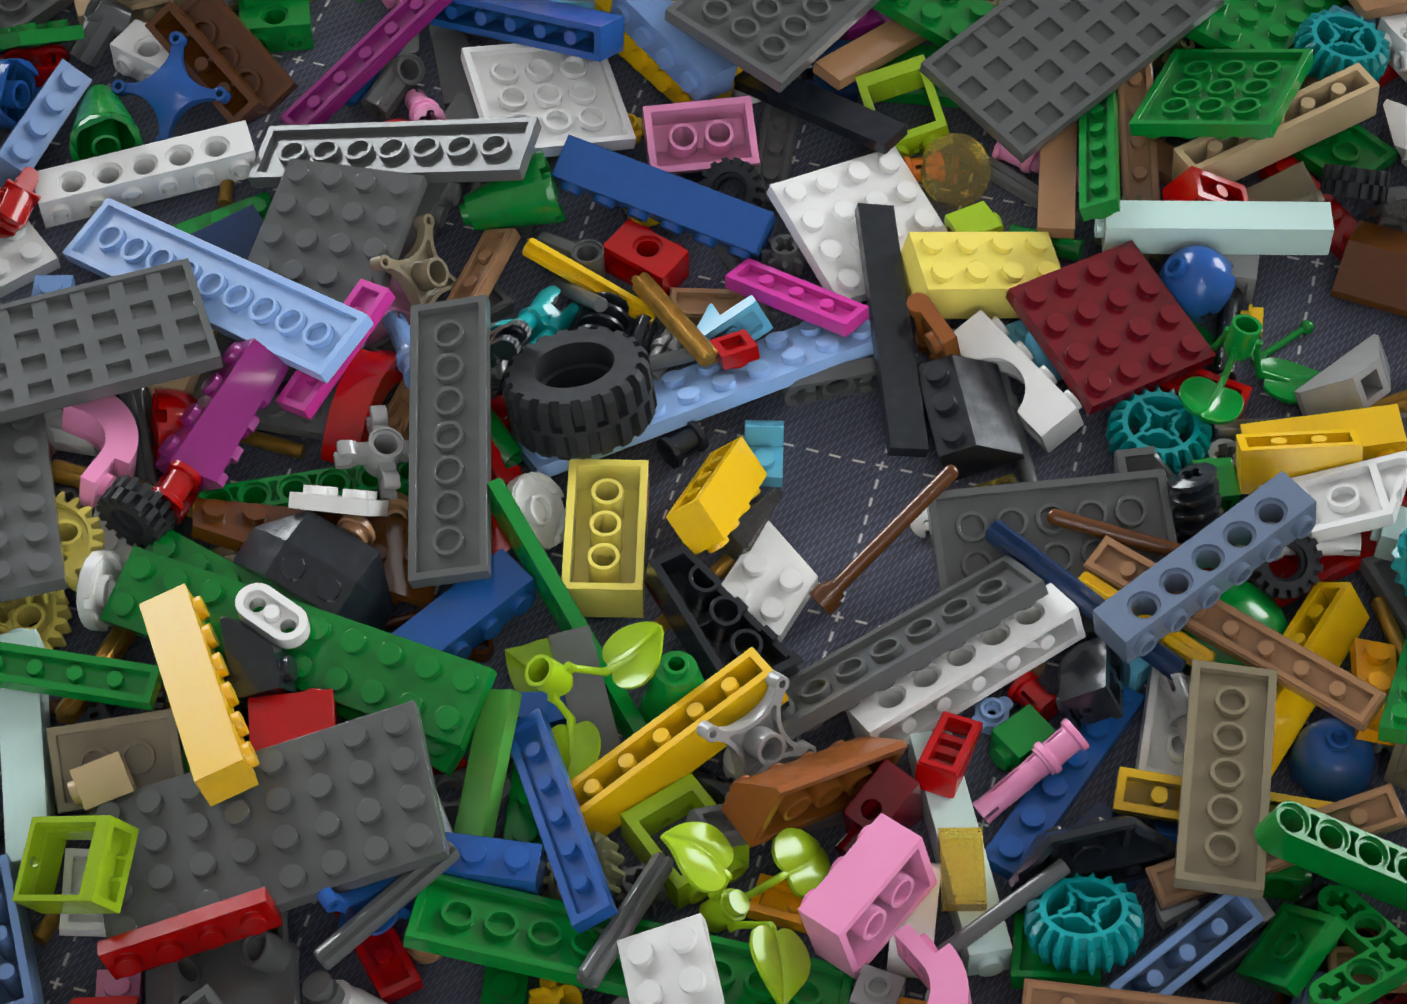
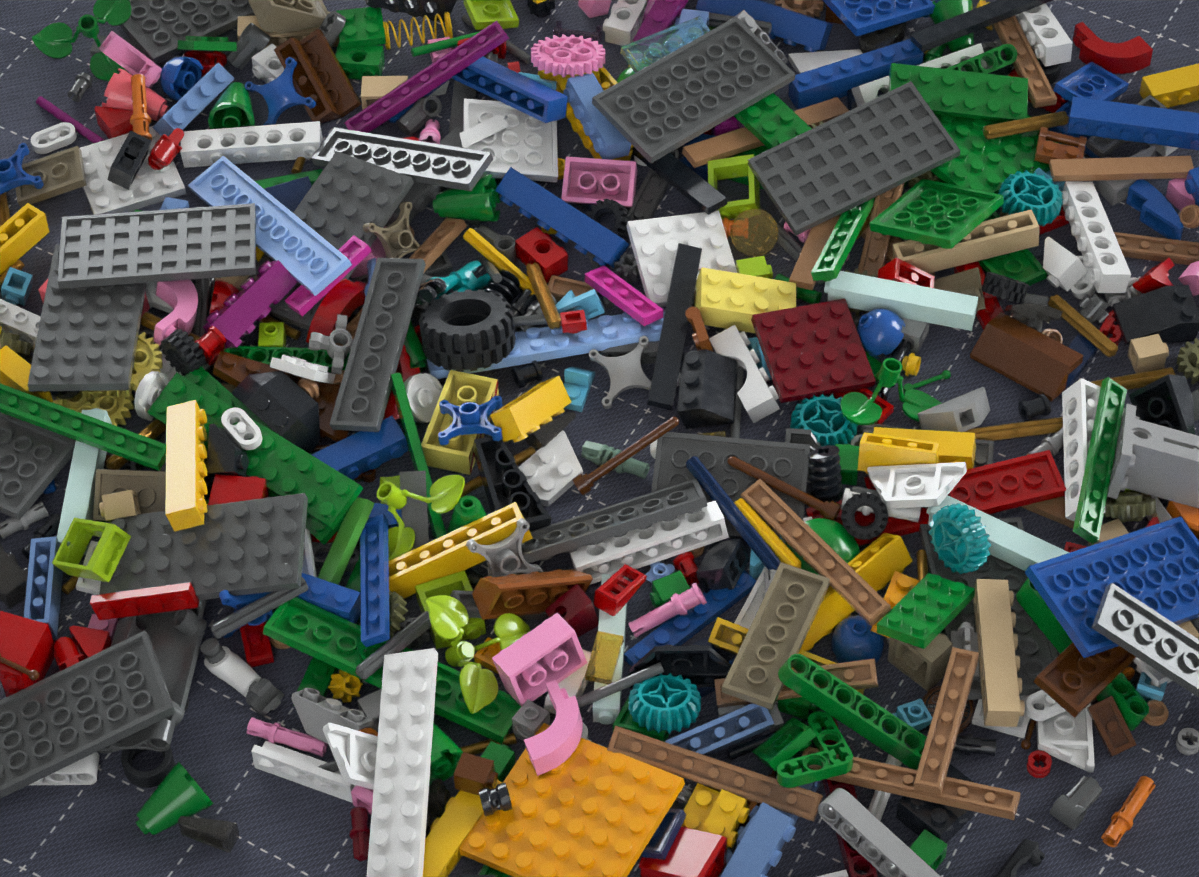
camera: 15 degrees right, 0 degrees up
(265, 457) = (272, 334): none -> lime brick
(315, 57) = (378, 86): none -> tan slope
(505, 89) = (483, 130): none -> white sticker
(632, 530) = (470, 419): none -> blue piece
(832, 412) = (624, 371): none -> light grey piece
(842, 547) = (602, 453): none -> sand green hinge
(1213, 547) = (816, 499): sand blue brick -> none

